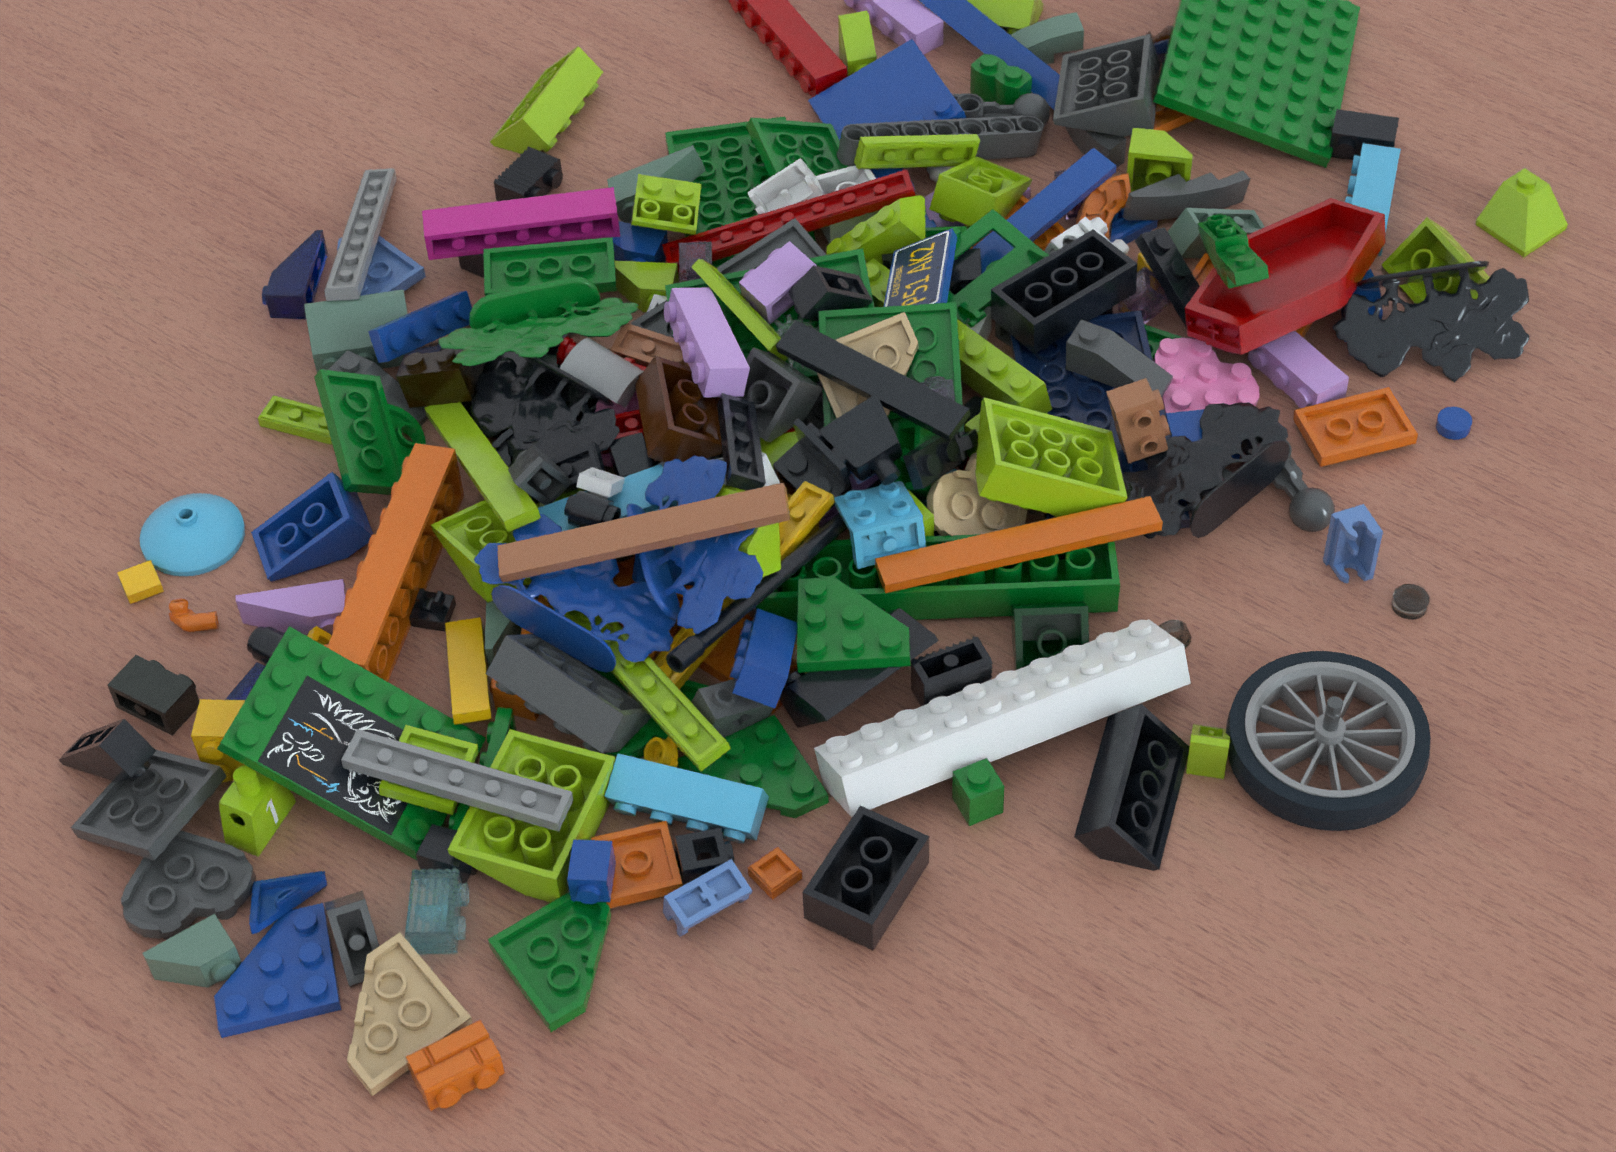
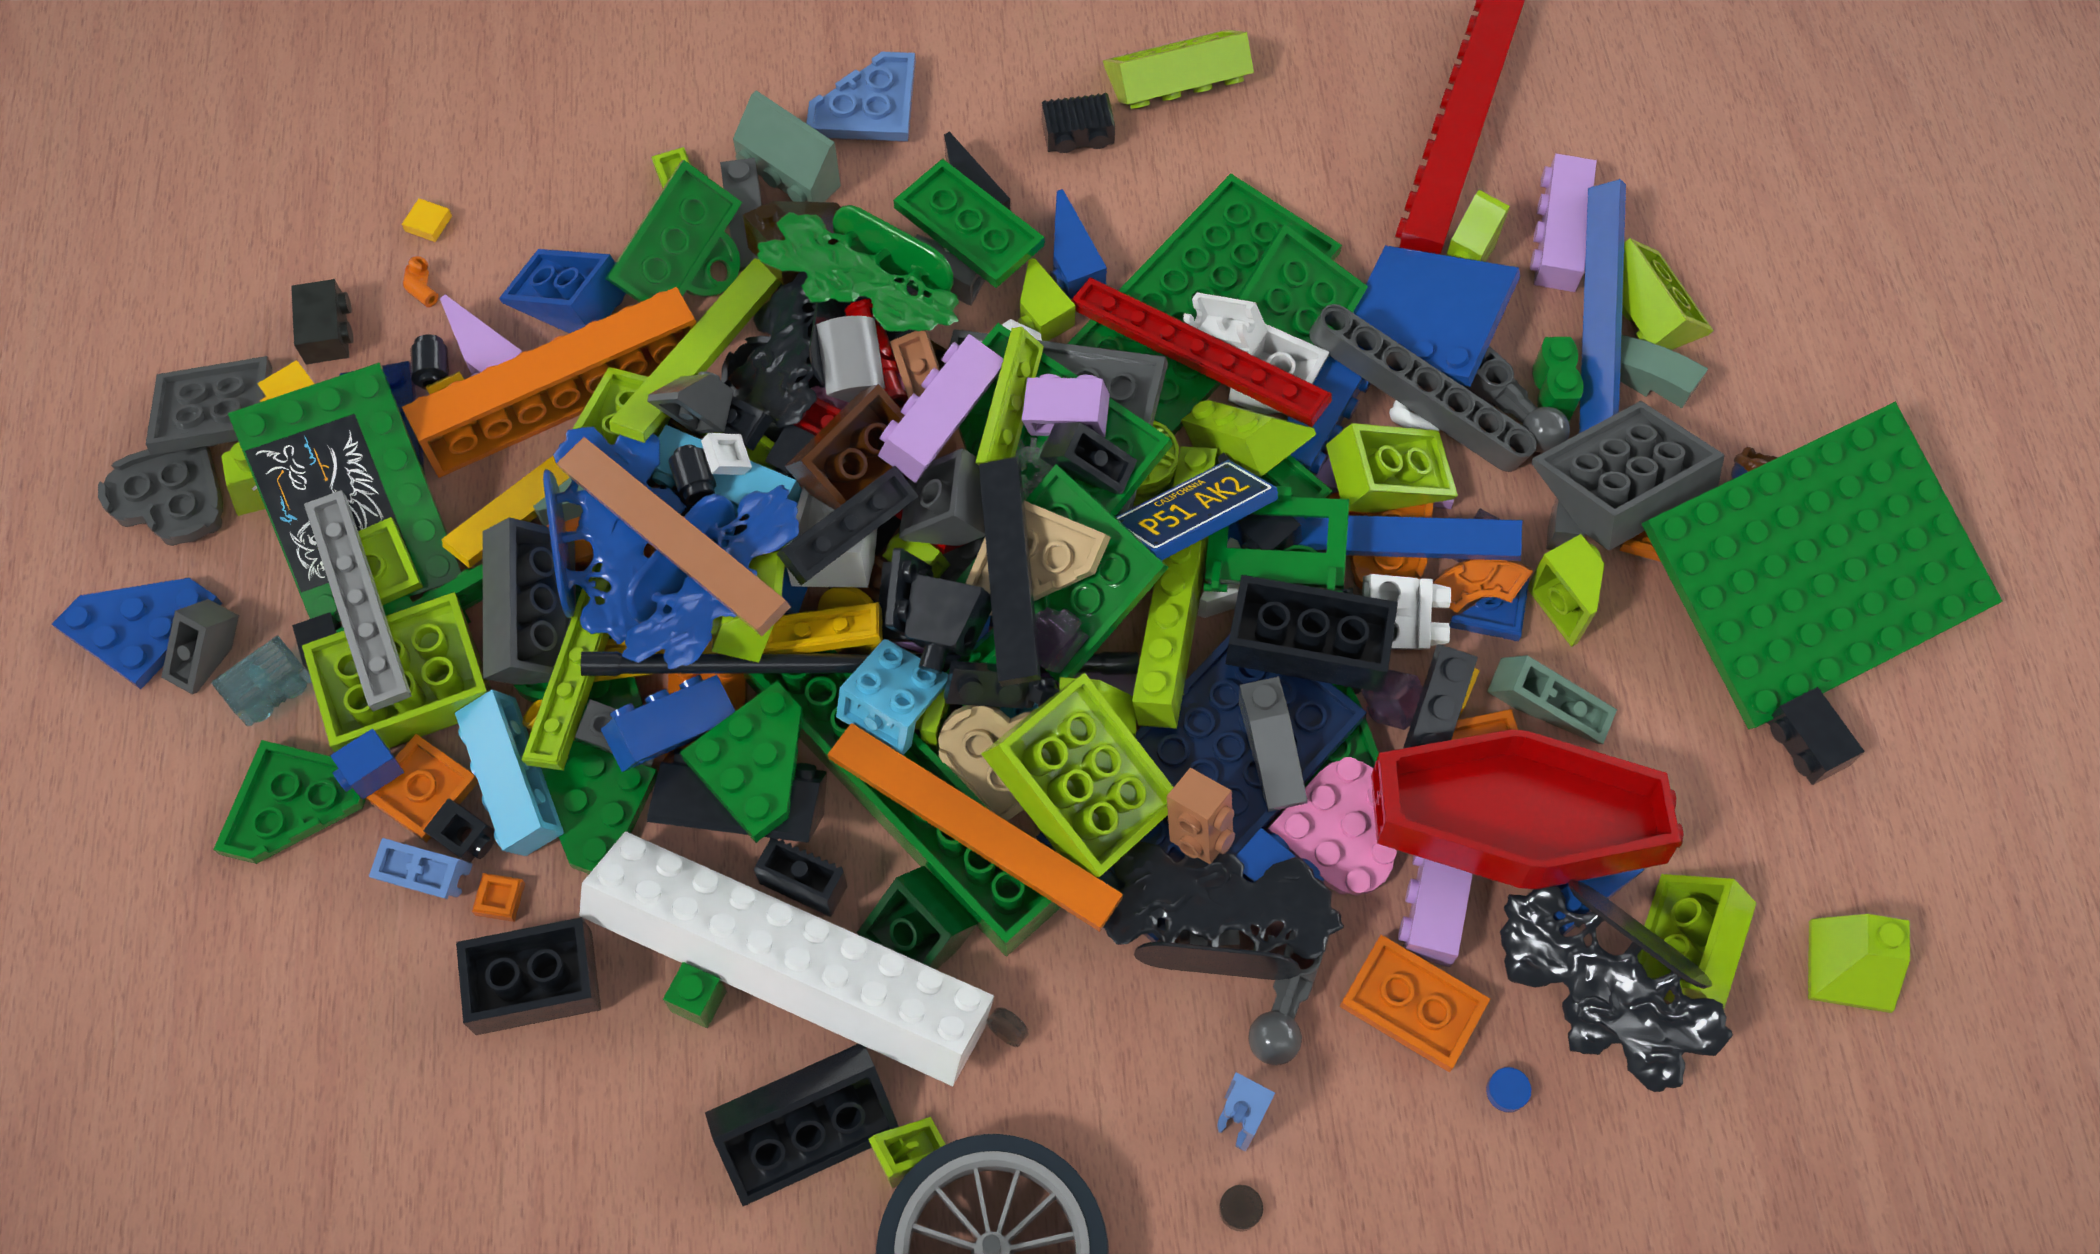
camera: 45 degrees right, 15 degrees up
(110, 752) = (228, 343): black slope -> none
(192, 534) = (504, 213): medium azure dish -> none
(195, 955) = (106, 555): sand green slope -> none
(280, 895) = (197, 561): blue tile -> none
(296, 279) = (815, 60): clear blue slope -> none
(360, 235) = (885, 63): light grey tile -> none
(398, 1013) = (150, 736): tan plate -> none
(421, 326) = (827, 186): blue plate -> none
(432, 610) = (556, 427): black tile -> none
(455, 1066) = (130, 813): orange brick -> none
(520, 222) = (1000, 161): dark pink brick -> none
(666, 204) = (1117, 248): lime slope -> none
(680, 165) = (1151, 214): sand green slope -> none
(689, 254) = (1077, 322): clear purple brick -> none
(915, 151) = (1380, 381): lime tile -> none
(1172, 195) = (1553, 634): dark grey slope -> none
(1230, 252) = (1482, 744): green slope -> none
(1374, 179) = (1742, 799): medium azure brick -> none

